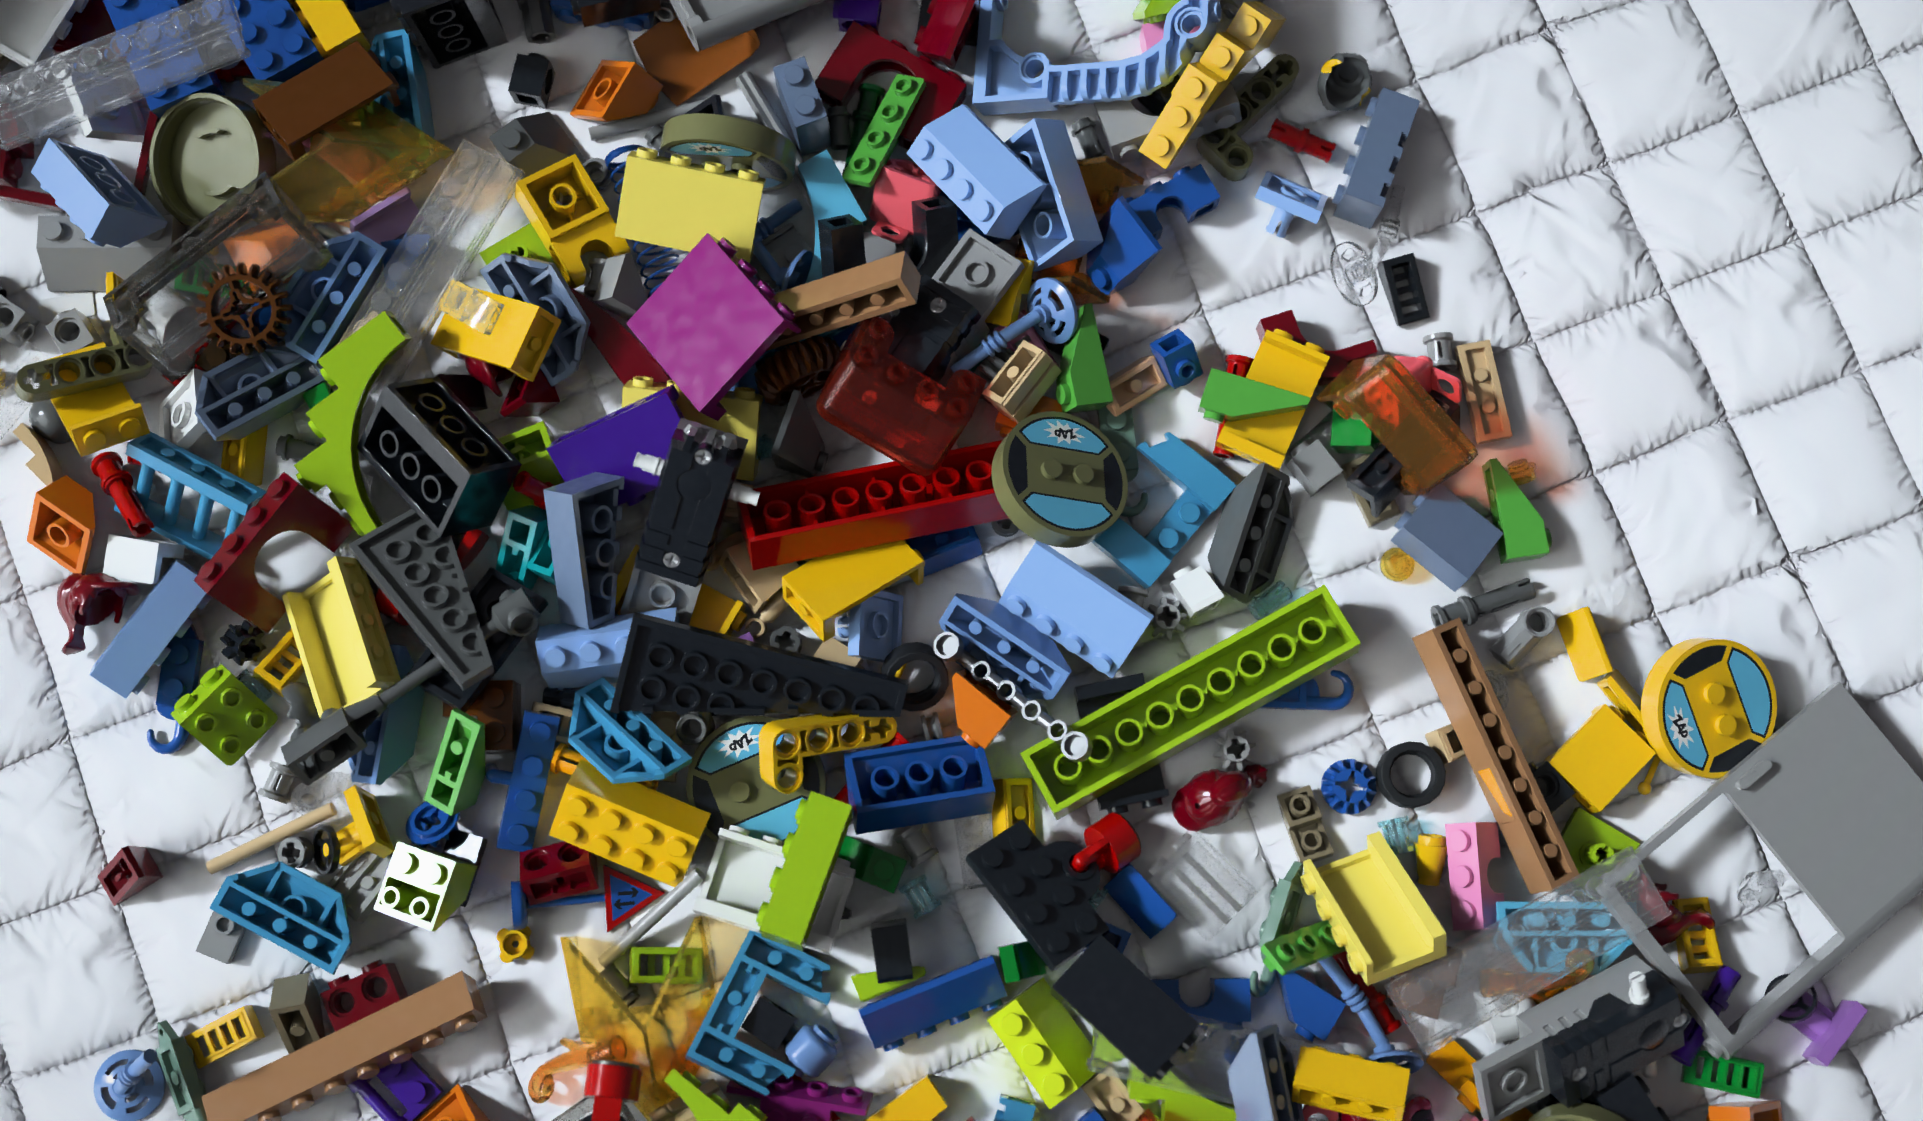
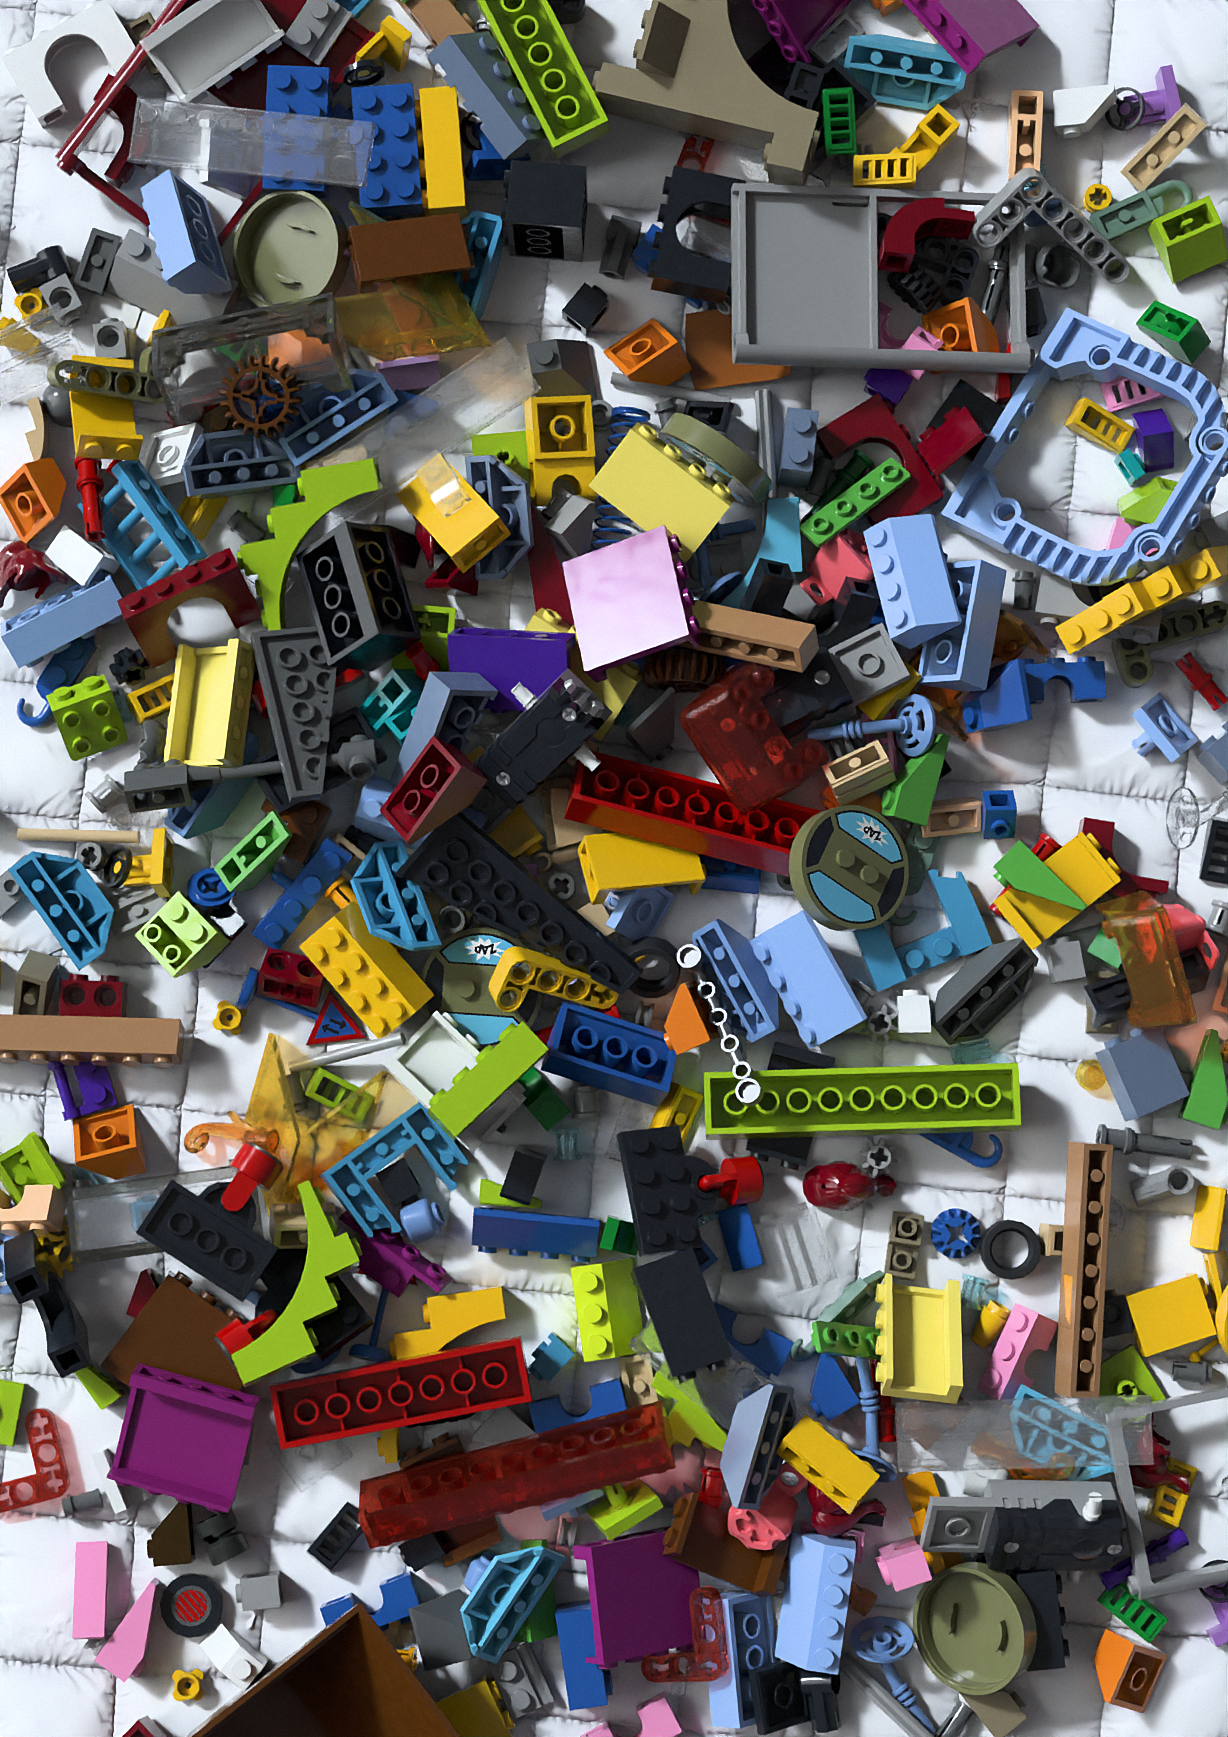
camera: 30 degrees right, 5 degrees up
(24, 268) = (97, 262): none -> dark grey plate
(604, 606) = (432, 790): none -> dark red slope
(1651, 803) = (1192, 1372): none -> dark grey pin

